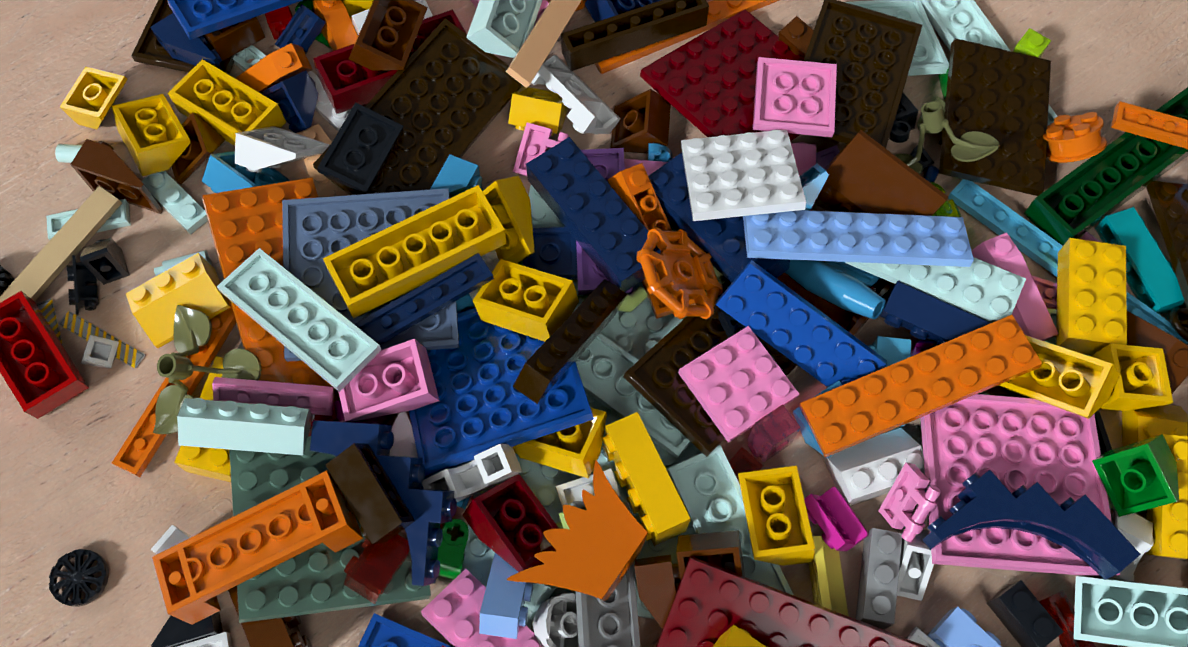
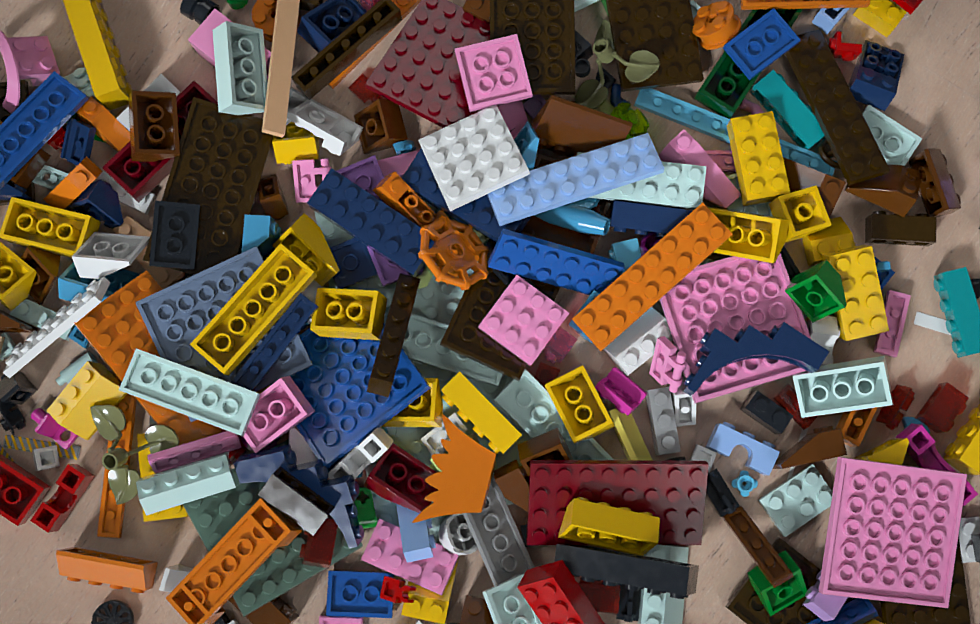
camera: 15 degrees left, 15 degrees up
(75, 416) = (56, 510): none -> red arch
(102, 506) = (106, 568): none -> orange slope
(121, 318) = (50, 428): none -> dark pink bracket
(183, 200) = (55, 327): none -> white plate
(204, 233) = (79, 338): none -> dark azure tile
(488, 156) = (272, 197): none -> reddish brown slope
(633, 82) = (360, 91): none -> clear red plate
(1128, 169) = (761, 44): none -> blue plate

